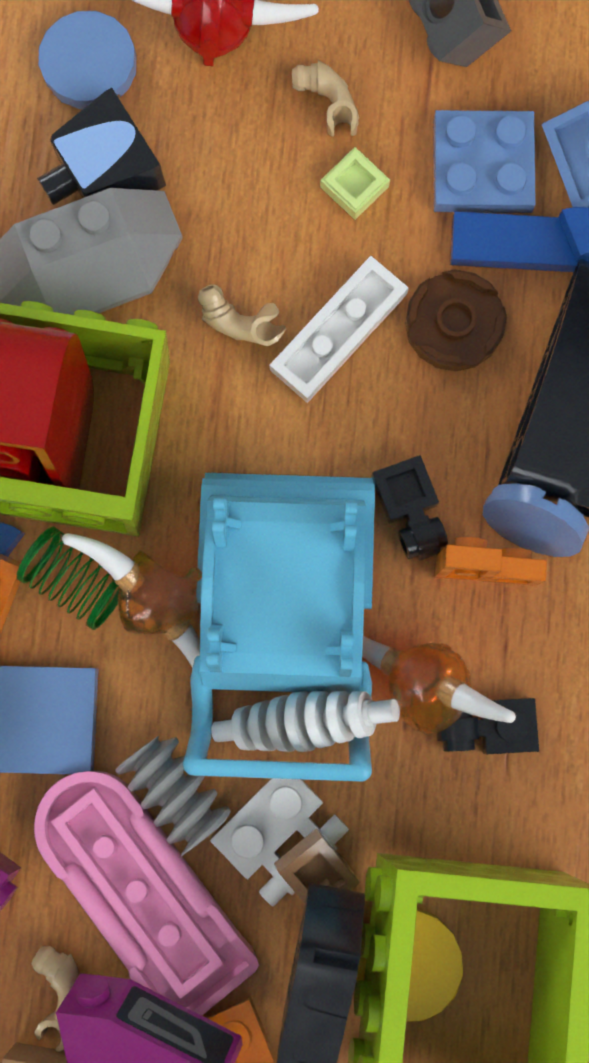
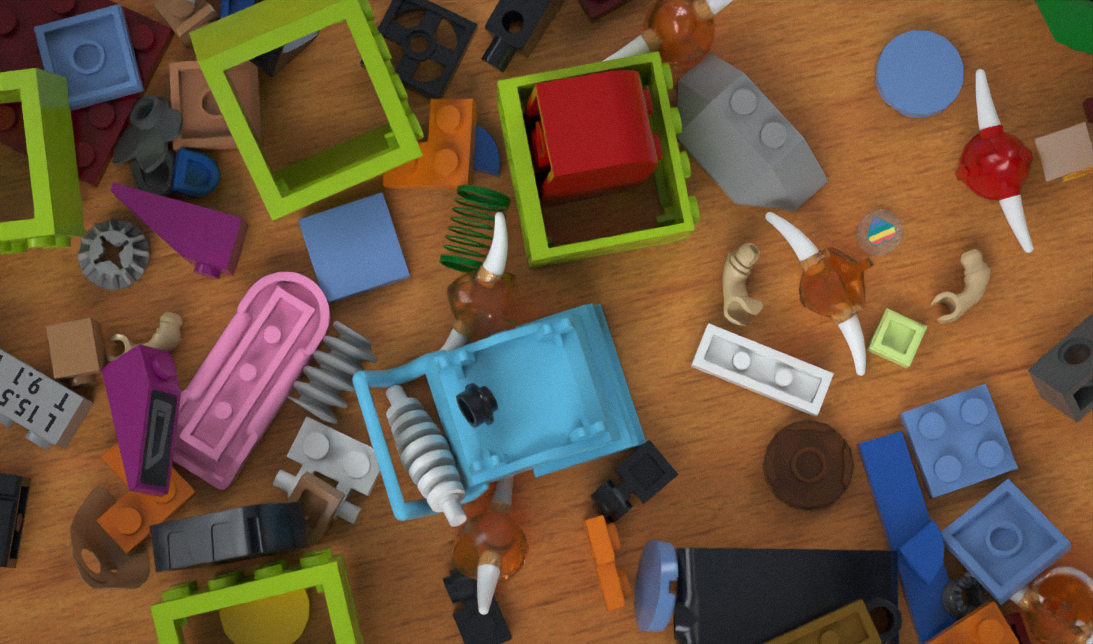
camera: 65 degrees right, 0 degrees up
(101, 152) = (835, 118): black torso -> none
(238, 159) = (879, 232): none -> clear tile
(274, 640) = (477, 405): none -> black plate
(276, 226) = (830, 285): none -> clear orange helmet

